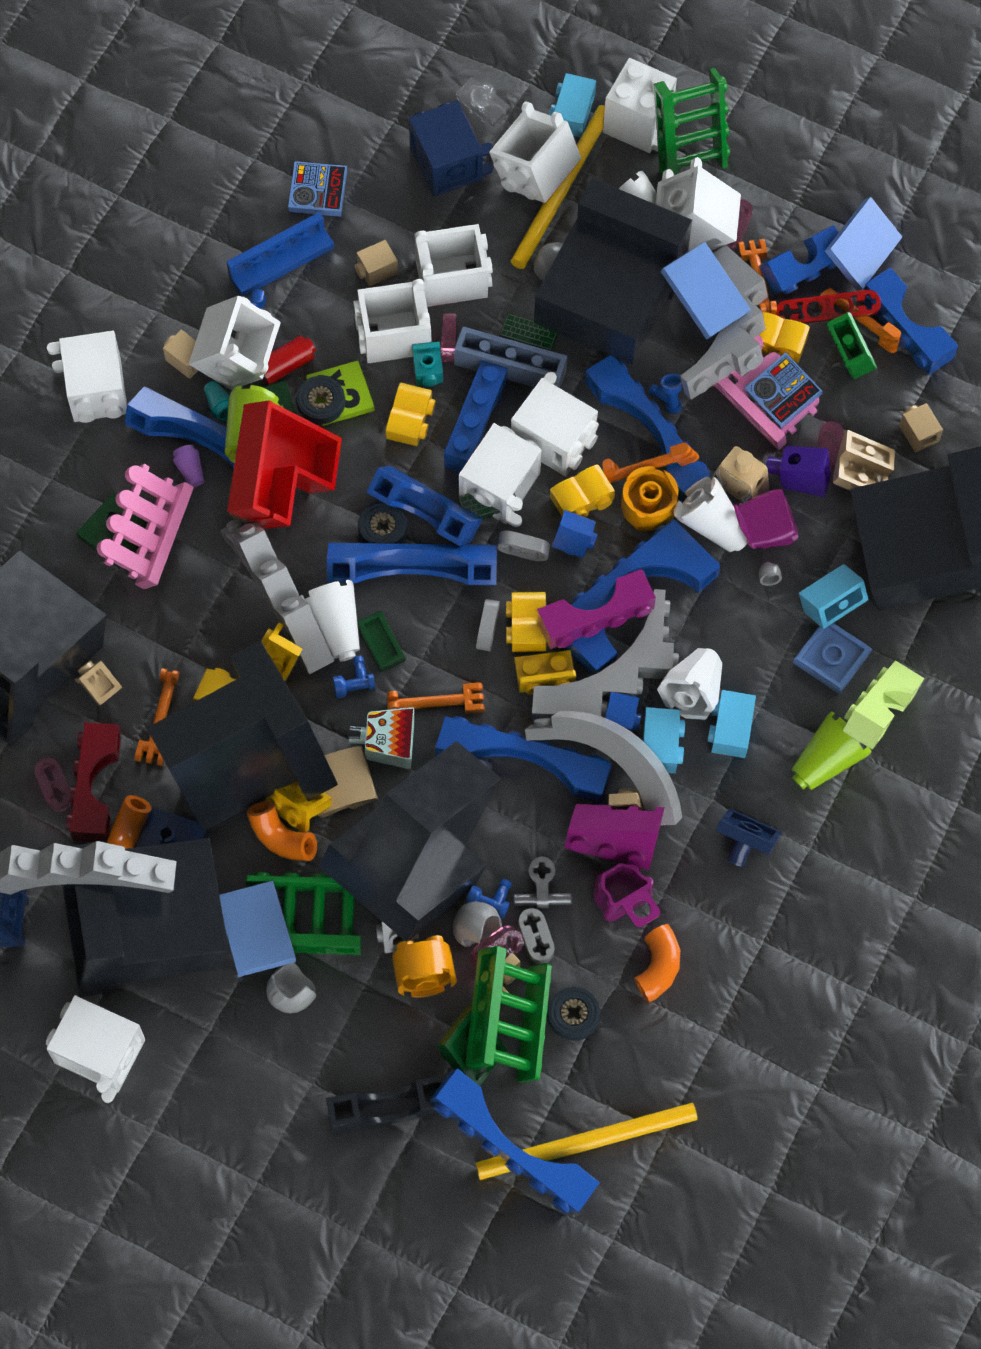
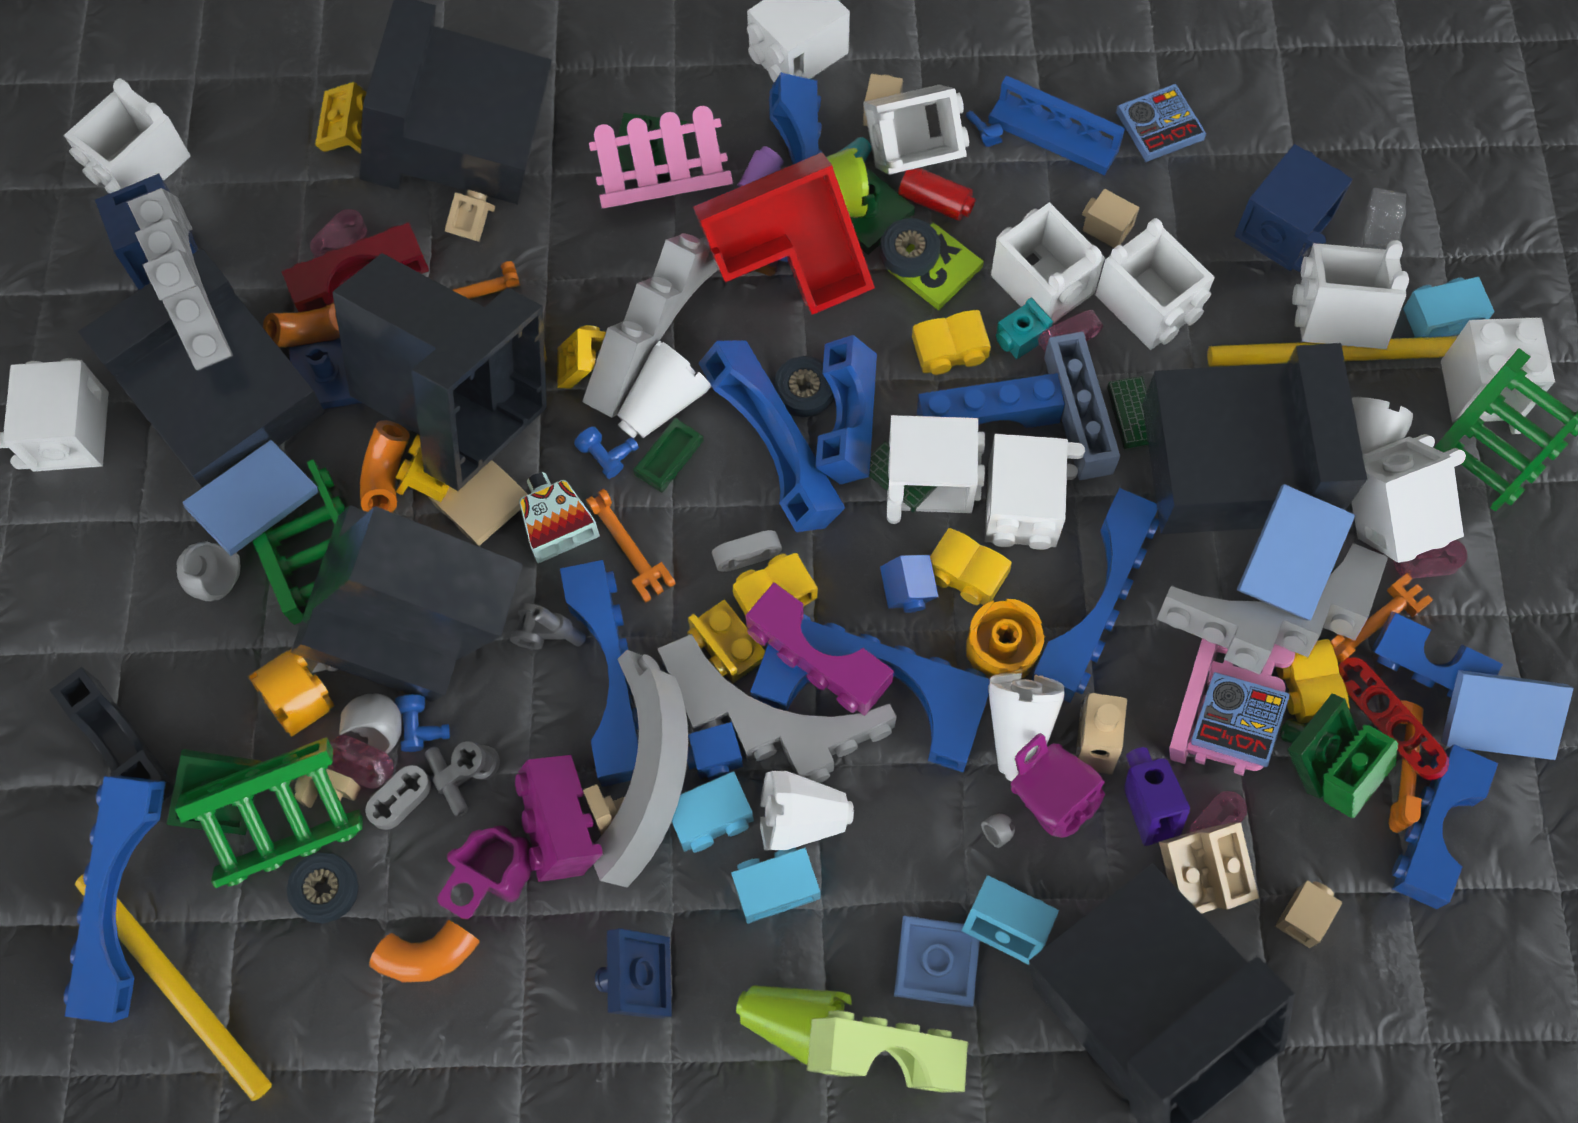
camera: 65 degrees right, 0 degrees up
(523, 546) = (864, 537): light grey beam -> none
(670, 387) = (1155, 593): blue piece -> none
(680, 453) = (1074, 639): orange hinge -> none
(823, 356) = (1319, 742): none -> dark green tile

